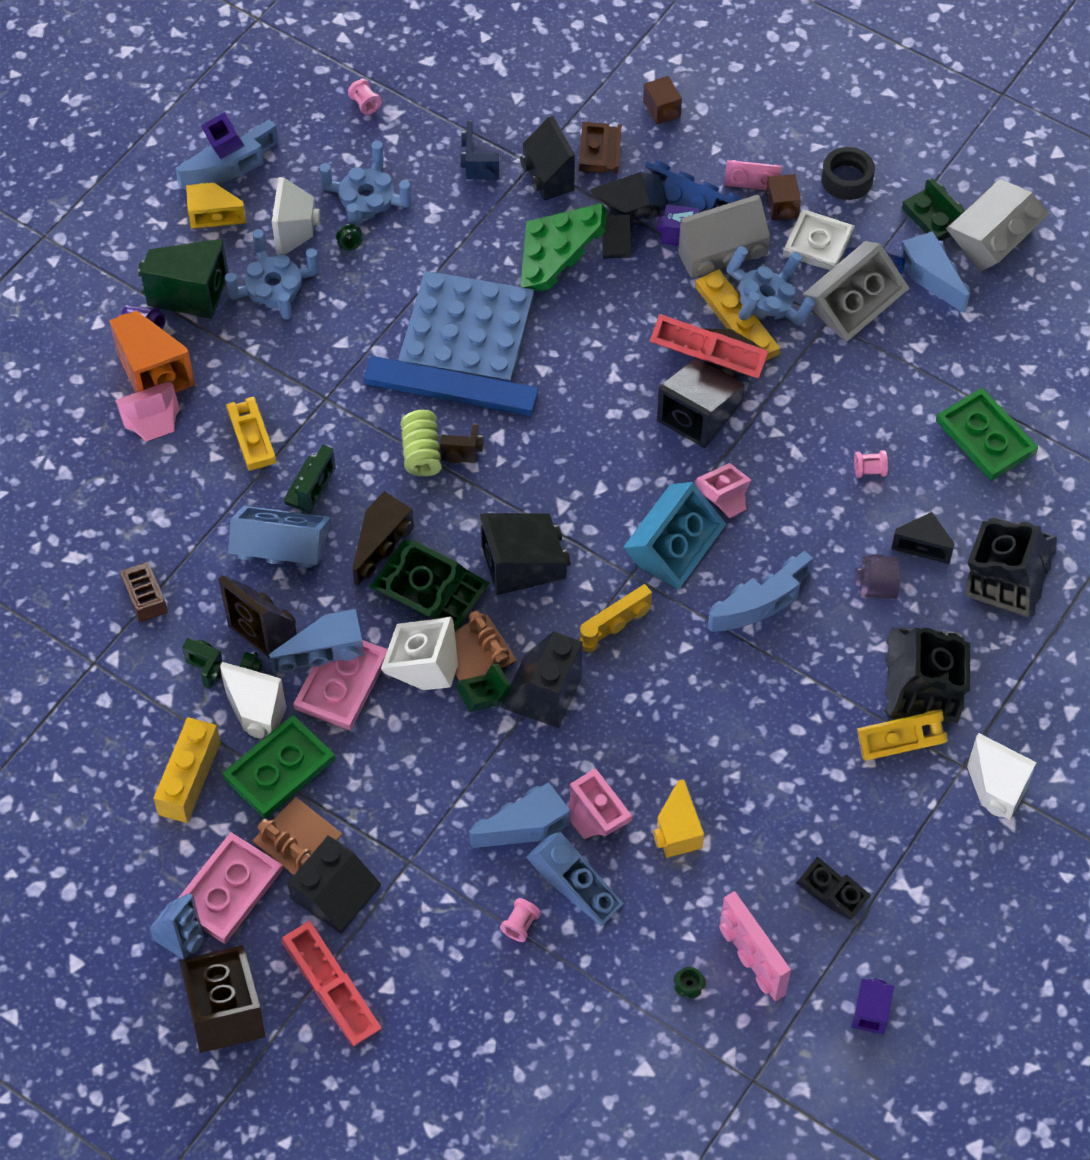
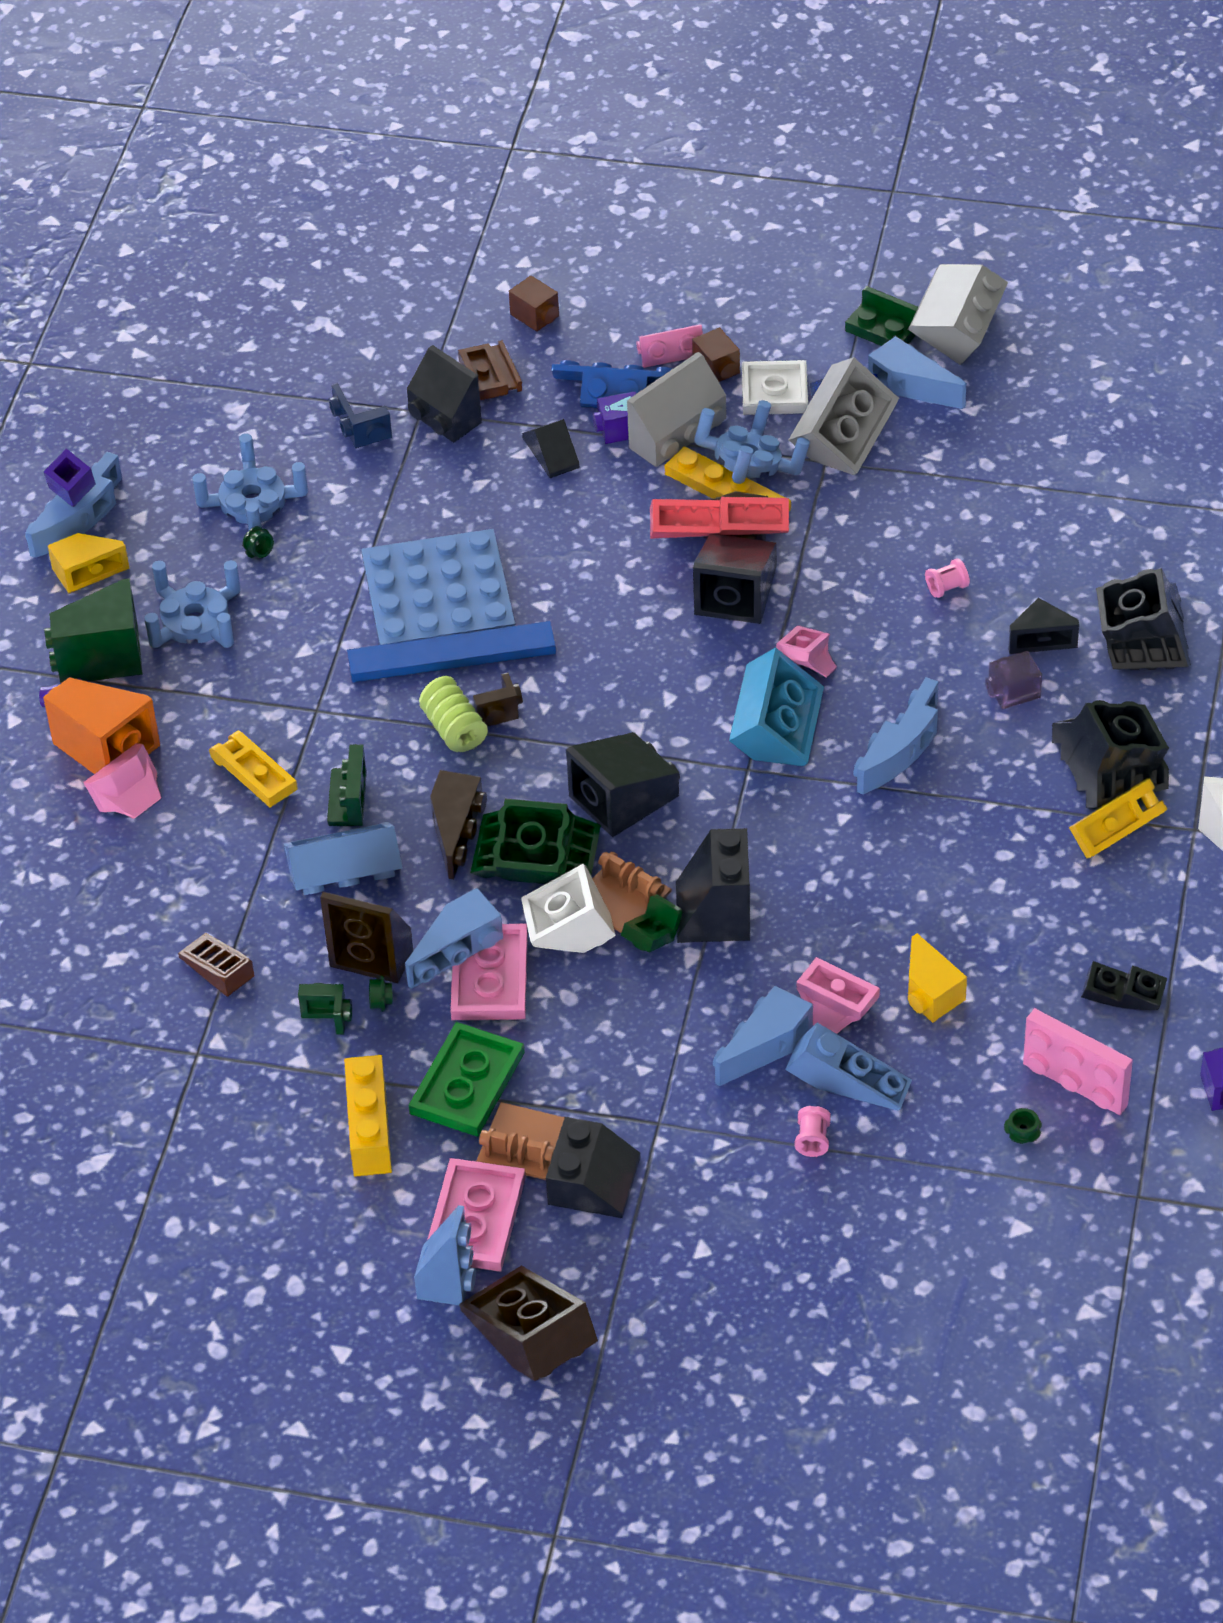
camera: 20 degrees left, 10 degrees down
(254, 698) = (403, 1017): white slope -> none
(293, 216) = (186, 539): white slope -> none
(330, 983) = (645, 1270): coral slope -> none
(364, 96) = (205, 411): bright pink bush -> none
(557, 243) = (497, 473): green plate -> none
(615, 617) = (761, 802): yellow plate -> none
(635, 194) = (557, 398): black slope -> none
(848, 157) = (772, 328): black tyre -> none
(986, 434) = (1052, 511): green plate -> none

